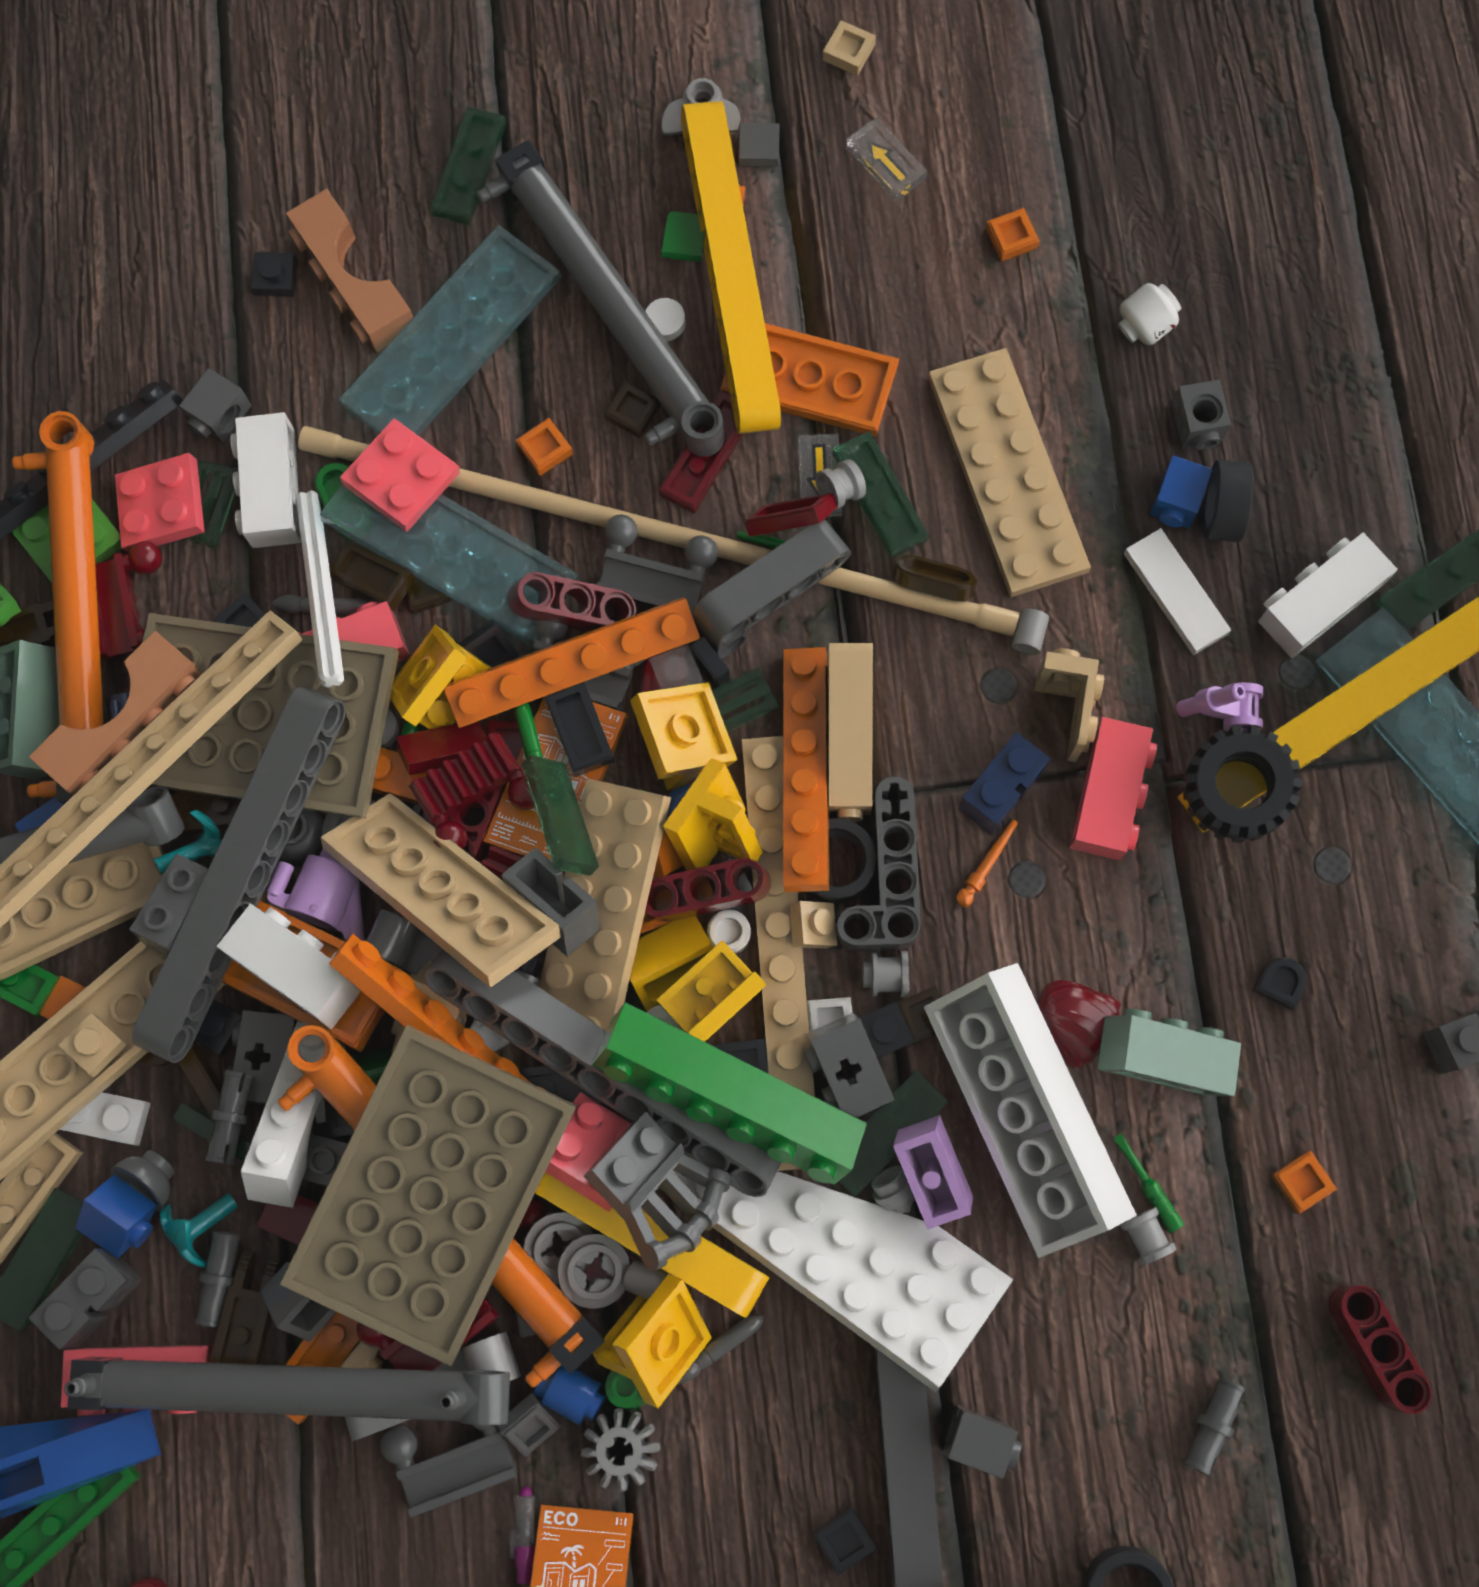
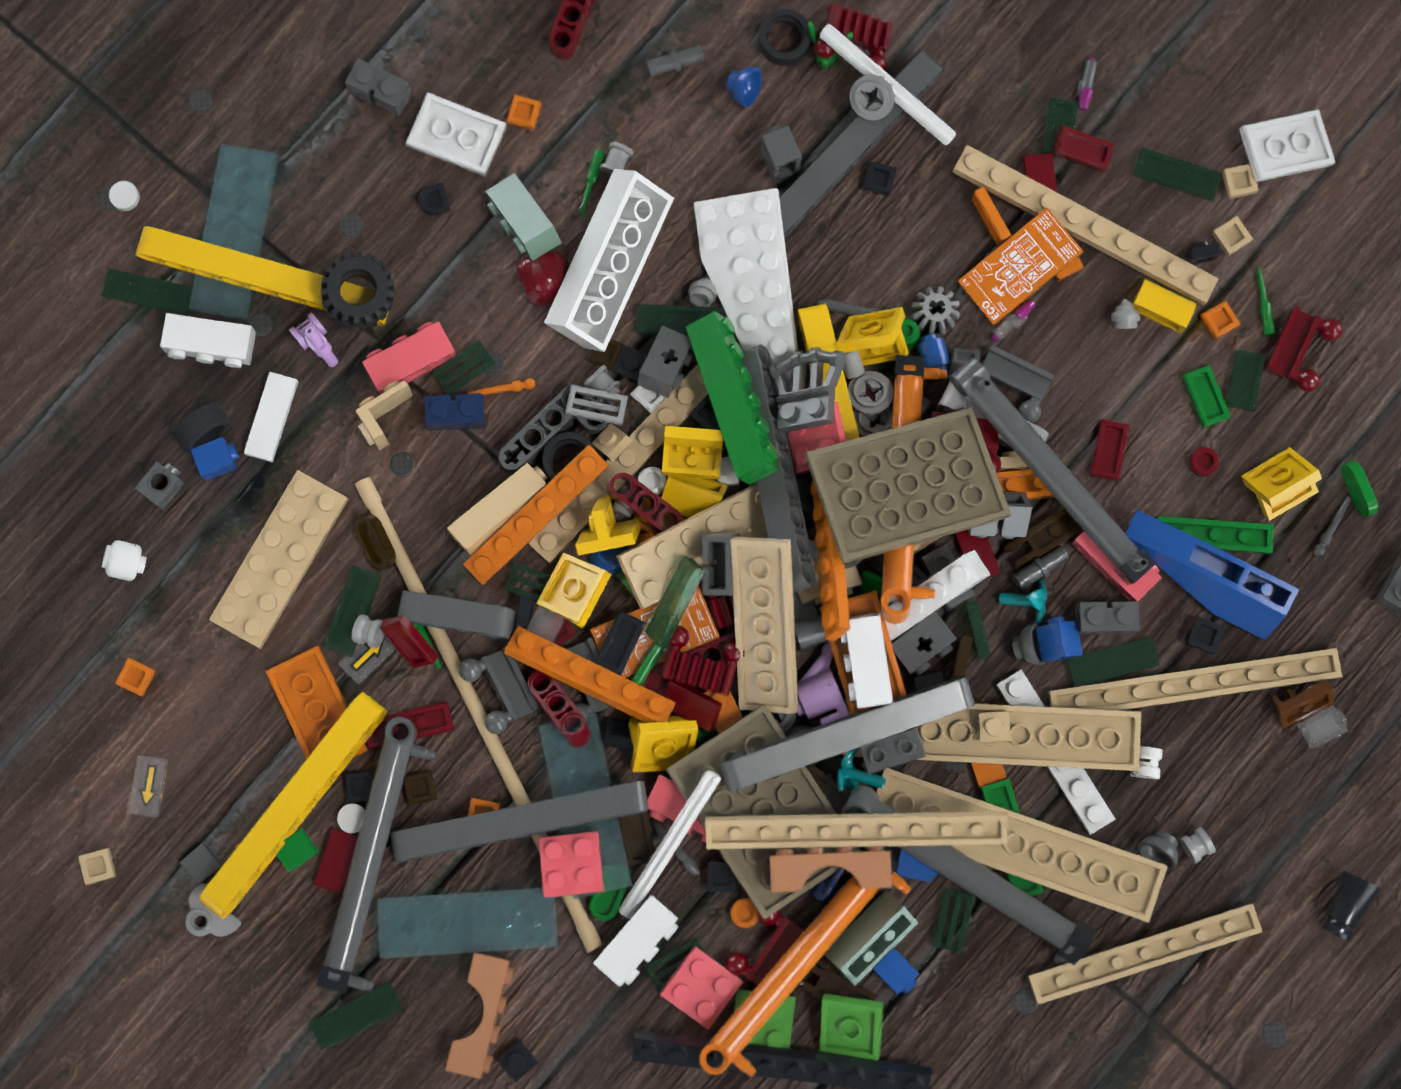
camera: 140 degrees left, 5 degrees up
(189, 607) = (744, 913): none -> orange tile
(214, 406) = (623, 1011): dark grey brick -> none
(229, 1117) = (964, 625): dark grey pin -> none
(268, 1499) = (1109, 450): none -> dark red tile
(491, 466) = (519, 821): none -> dark grey beam
(637, 267) = (336, 861): none -> dark red tile
(693, 351) = (358, 786): none -> black tile
(836, 961) = (595, 405): none -> light grey tile
(933, 1172) = (678, 278): lavender brick -> none
(1030, 631) = (360, 469): light grey hinge -> none
(1052, 805) = (459, 358): none -> clear green tile
(1108, 1483) = (745, 85): none -> blue piece
(1343, 1078) = (456, 134): none -> white tile

